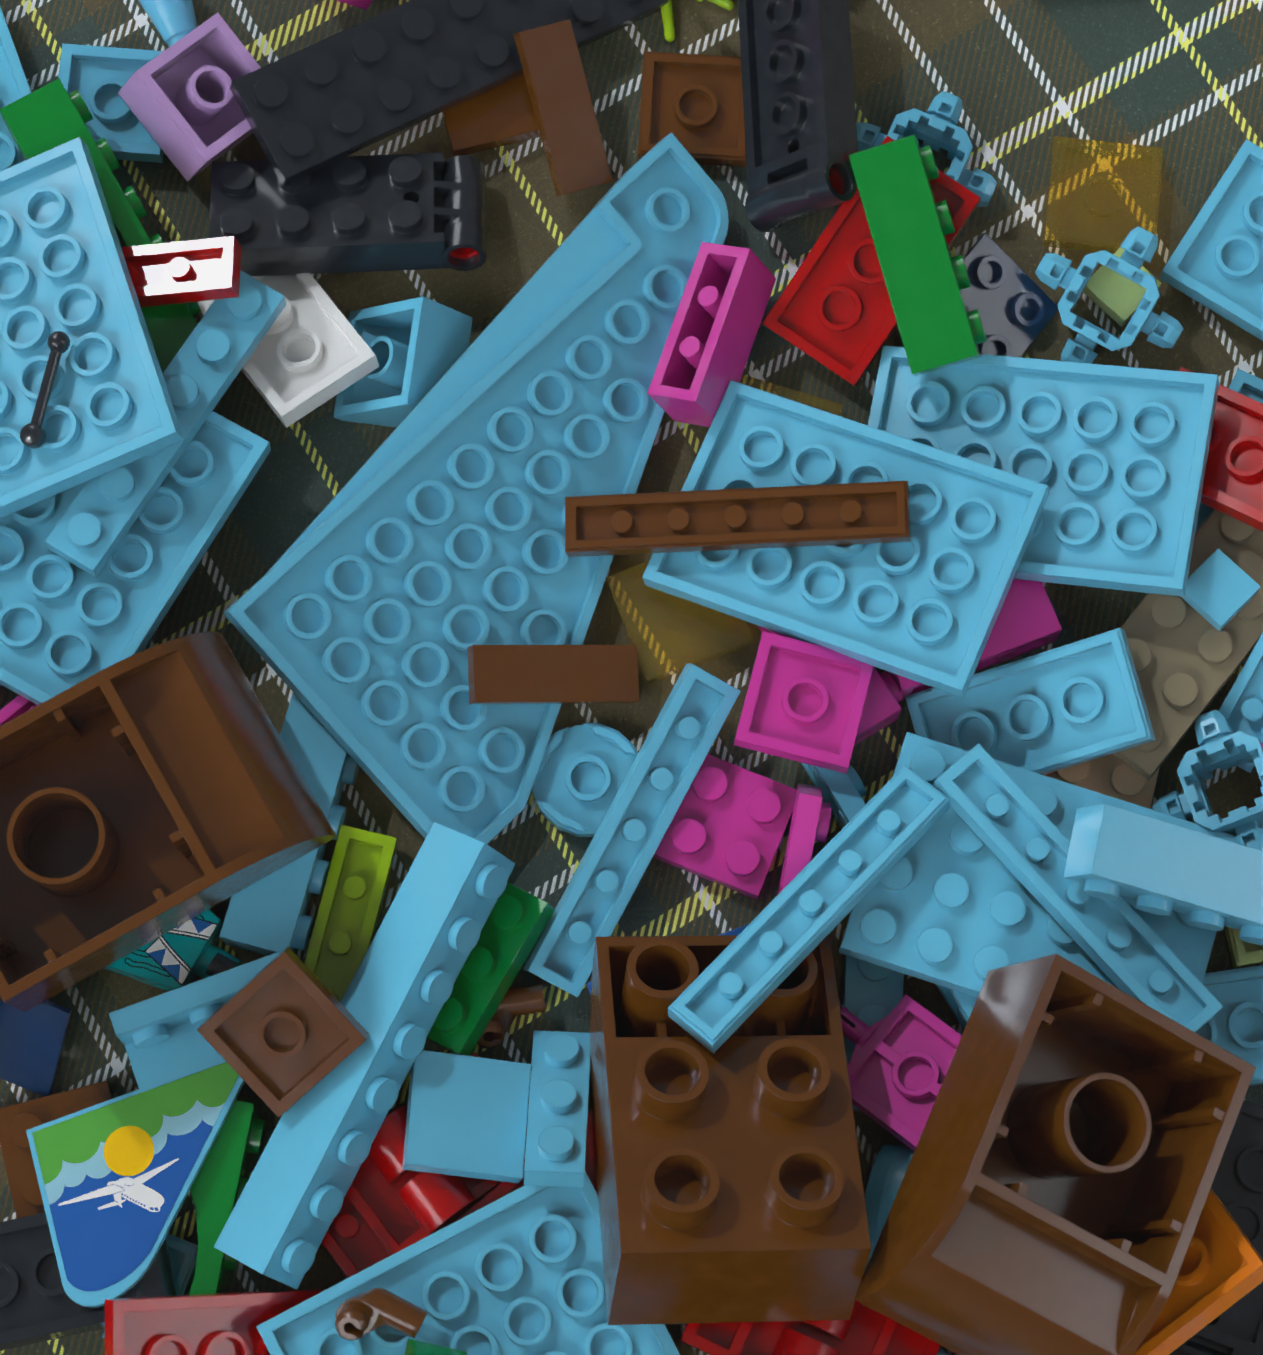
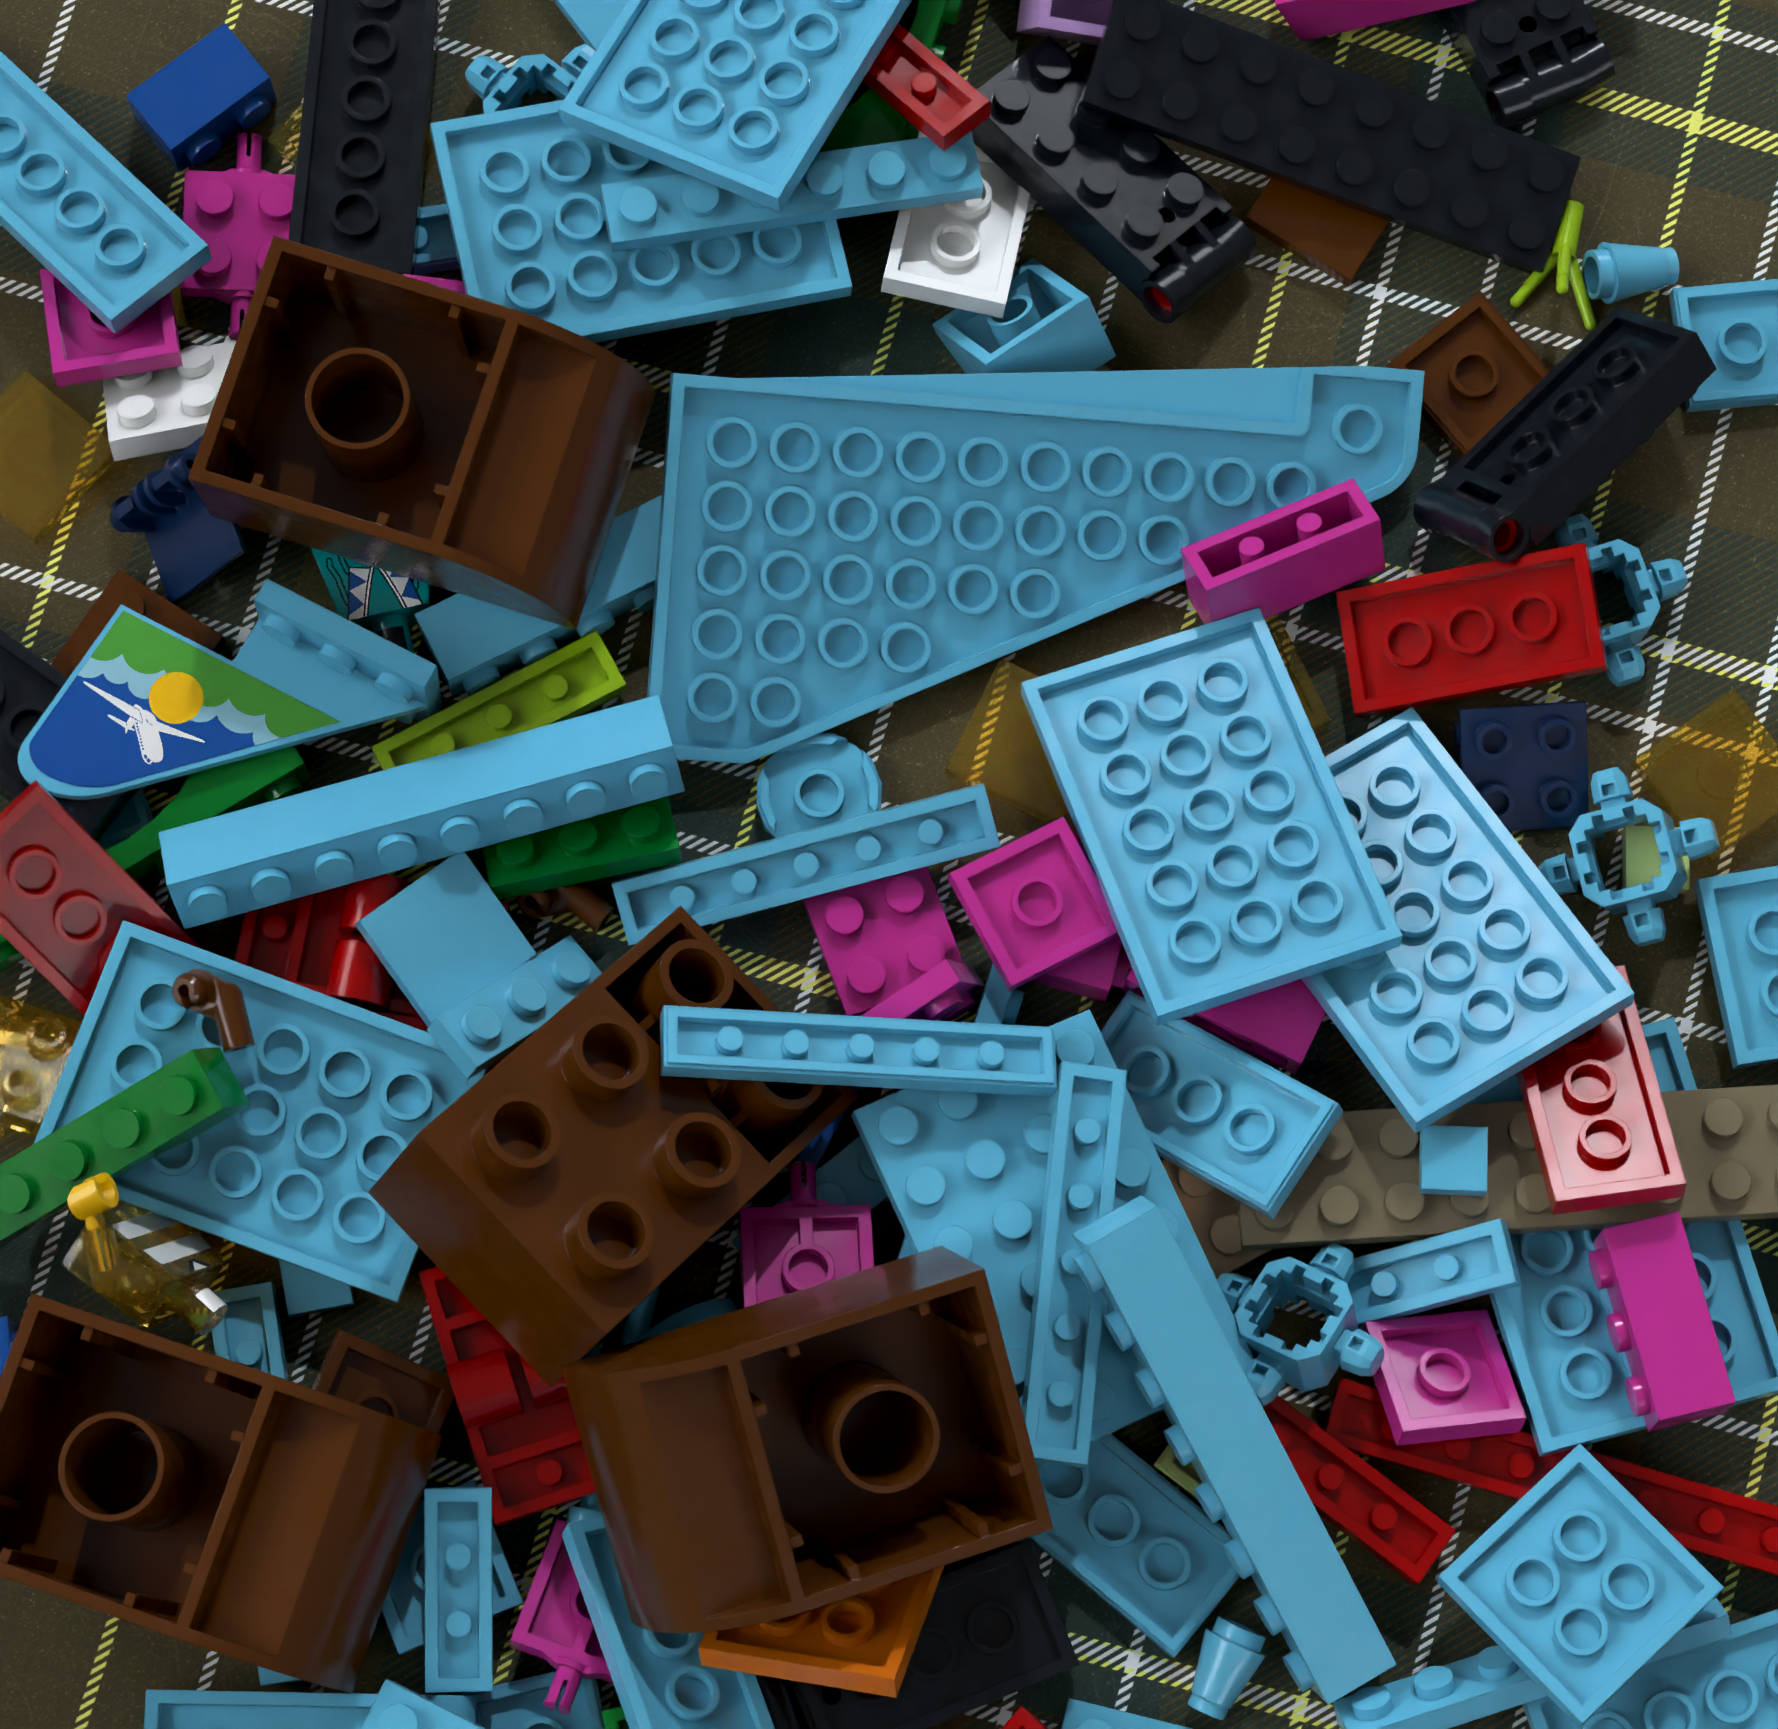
camera: 45 degrees right, 0 degrees up
(32, 433) = (676, 94): black hinge -> none
(283, 1032) = (374, 726): reddish brown plate -> none
(553, 674) = (875, 685): reddish brown tile -> none
(563, 107) = (1363, 267): reddish brown tile -> none
(737, 519) = (1141, 714): reddish brown tile -> none
(915, 254) = (1503, 656): green brick -> none

